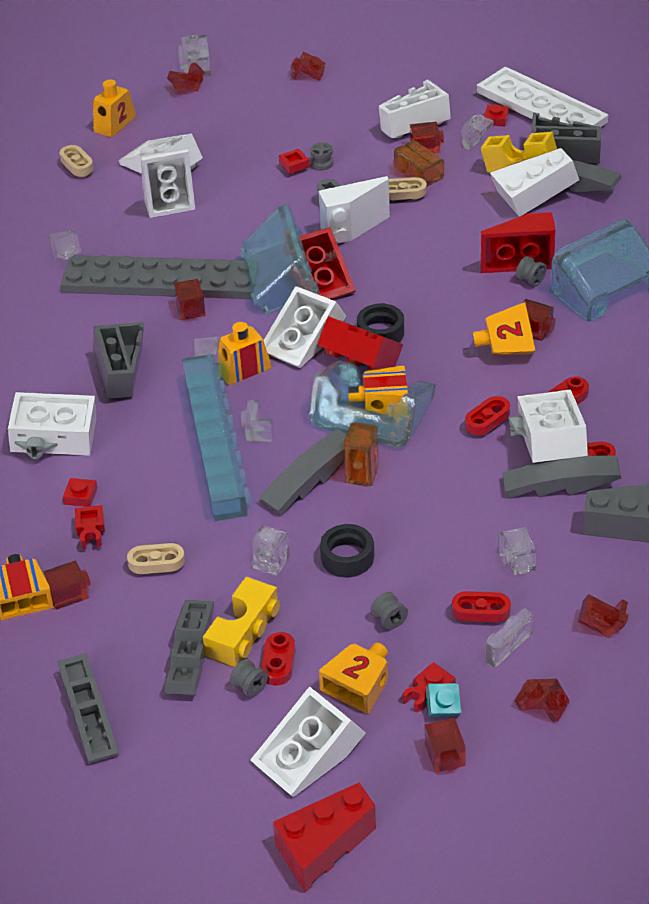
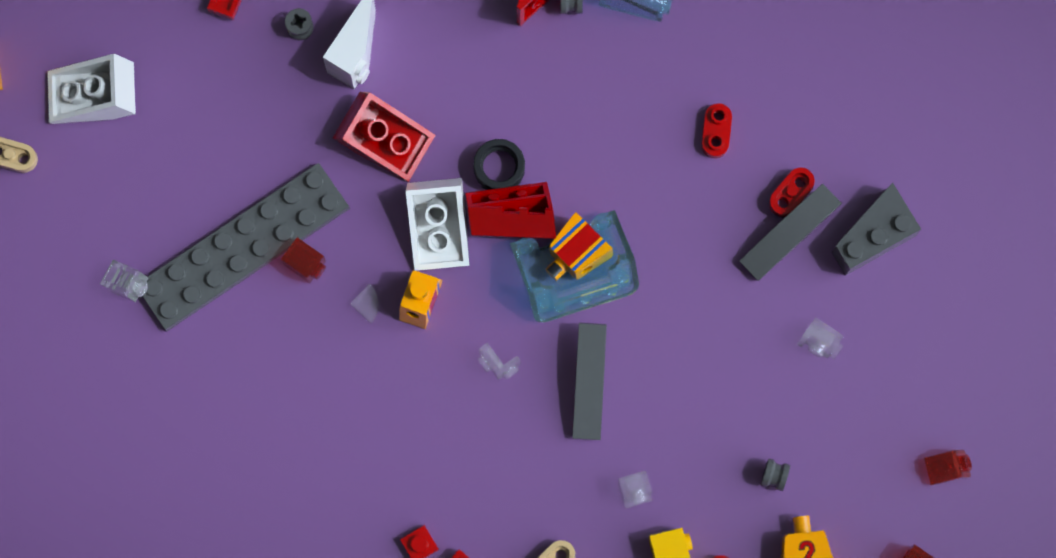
camera: 45 degrees left, 35 degrees up
(52, 424) = (333, 500): white piece -> none
(117, 356) = (316, 383): dark grey wedge -> none
(167, 183) = (154, 138): white slope -> none
(215, 437) = (475, 401): clear light blue brick -> none
(277, 260) = (348, 162): clear light blue windscreen -> none
(352, 565) = (701, 420): black tyre -> none
(361, 454) = (625, 336): clear orange brick -> none
(431, 675) = (858, 514): red plate -> none
(443, 700) = (883, 526): plate -> none
(481, 606) = (836, 415): red plate -> none
(487, 415) = (676, 206): red plate -> none
(507, 332) = (622, 102): light orange torso -> none
(508, 638) = (882, 441): clear plate -> none
(540, 319) = (624, 61): clear red brick -> none
(550, 426) = (749, 191): white piece -> none
(602, 616) = (933, 354): clear red bracket -> none

